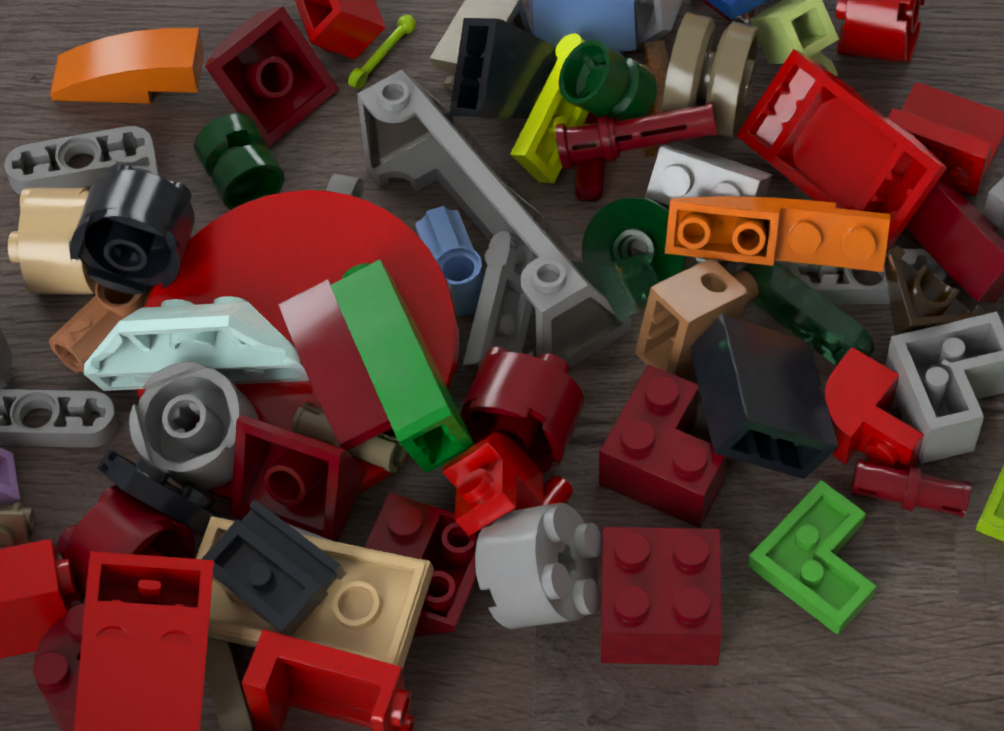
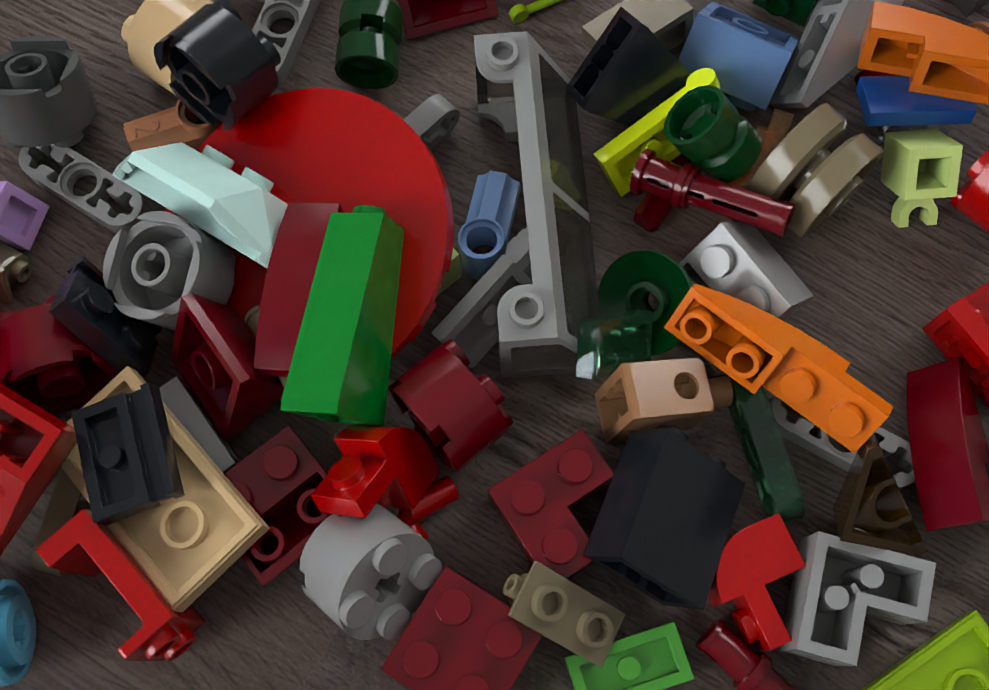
camera: 30 degrees right, 15 degrees up
(725, 509) = (563, 612): none -> dark tan hinge
(839, 145) = (892, 308): red slope -> none

